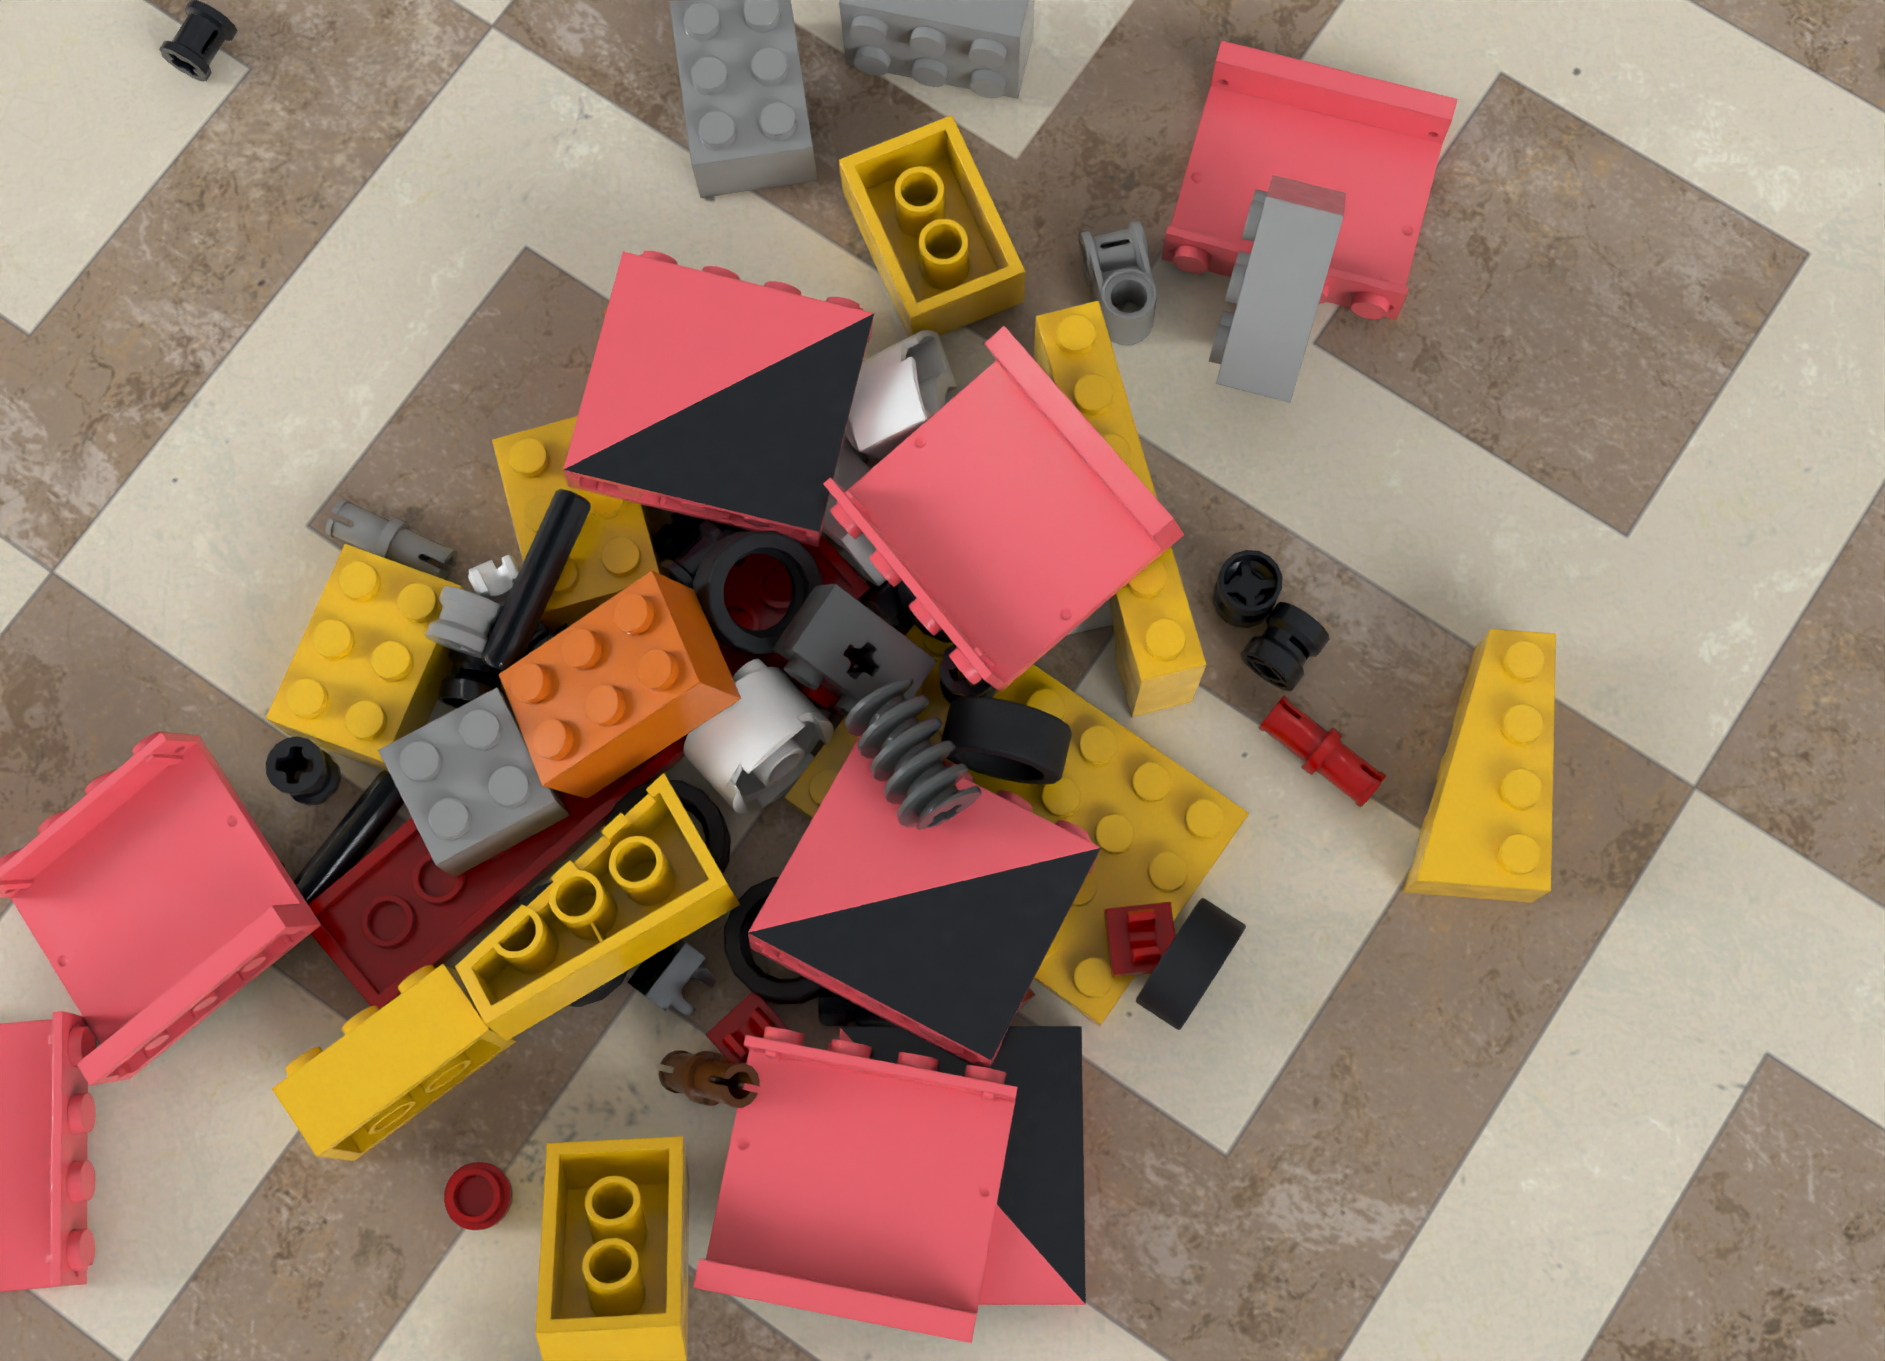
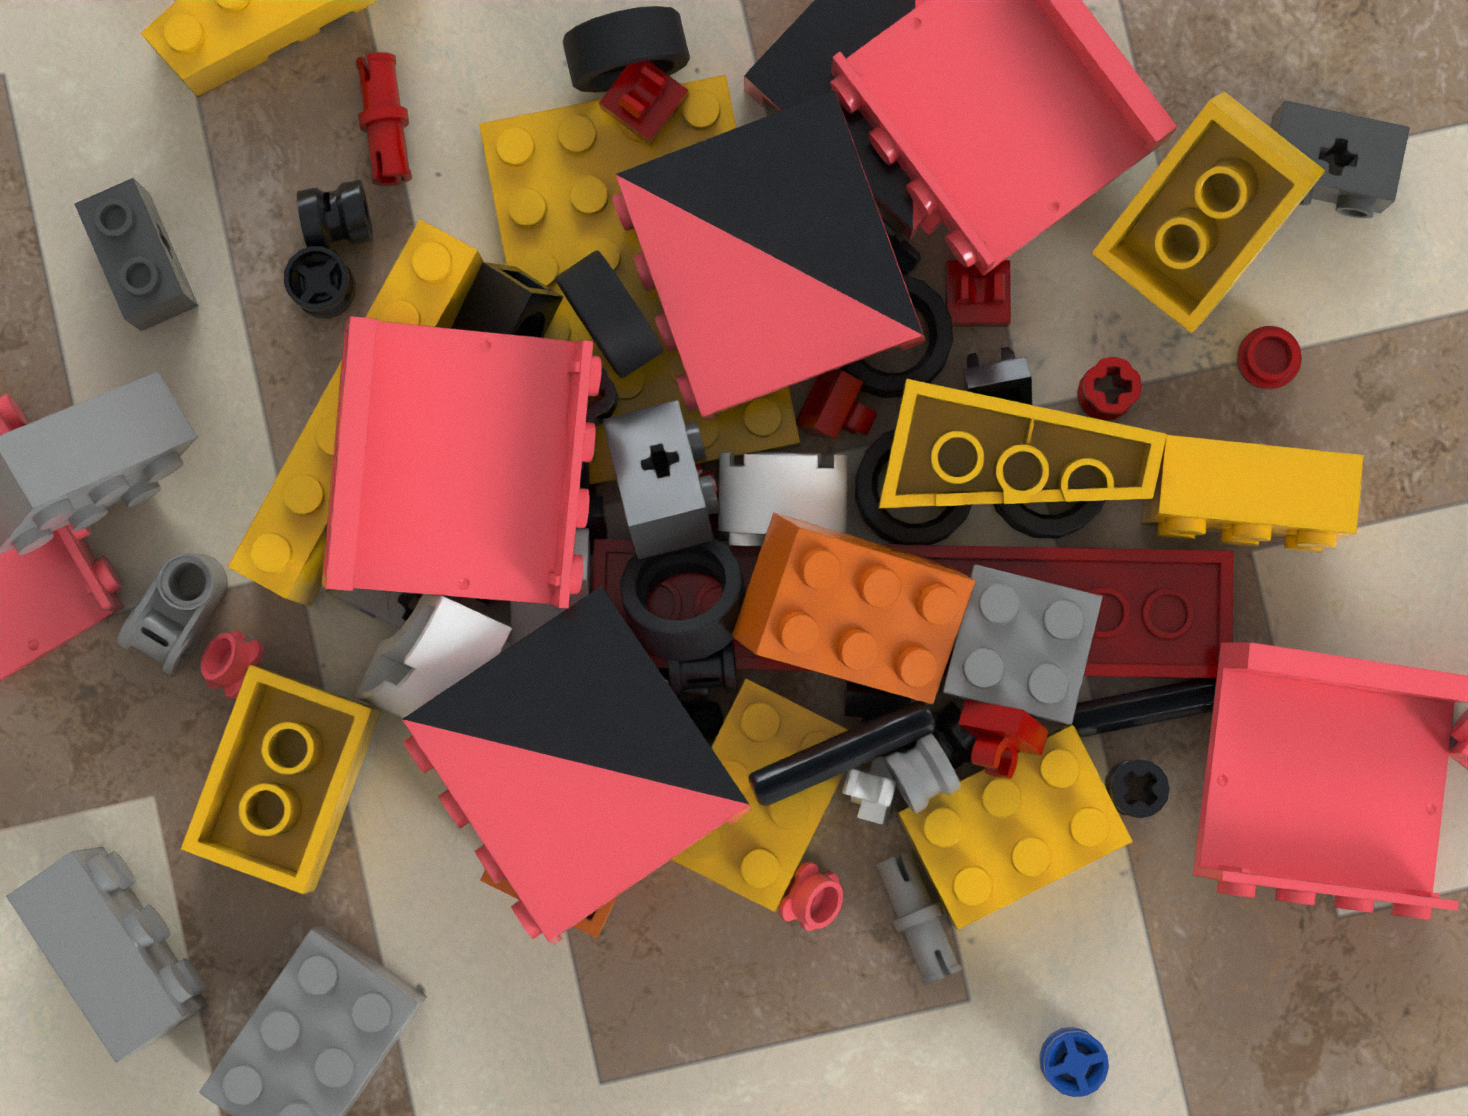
camera: 135 degrees left, 10 degrees up
(177, 531) = (1088, 1069): none -> blue wheel
(426, 696) = (1000, 736): none -> red tile
(479, 487) = (812, 897): none -> coral plate
(561, 1051) = (1123, 376): none -> red bush
(709, 1078) = (1037, 277): reddish brown pin -> none
(780, 834) = (833, 407): none -> red tile
(907, 757) = (691, 346): dark grey piece -> none
(1048, 280) = (228, 660): none -> coral plate
(1087, 681) = (507, 303): none -> black brick
(1397, 487) = (136, 254): none -> dark grey brick

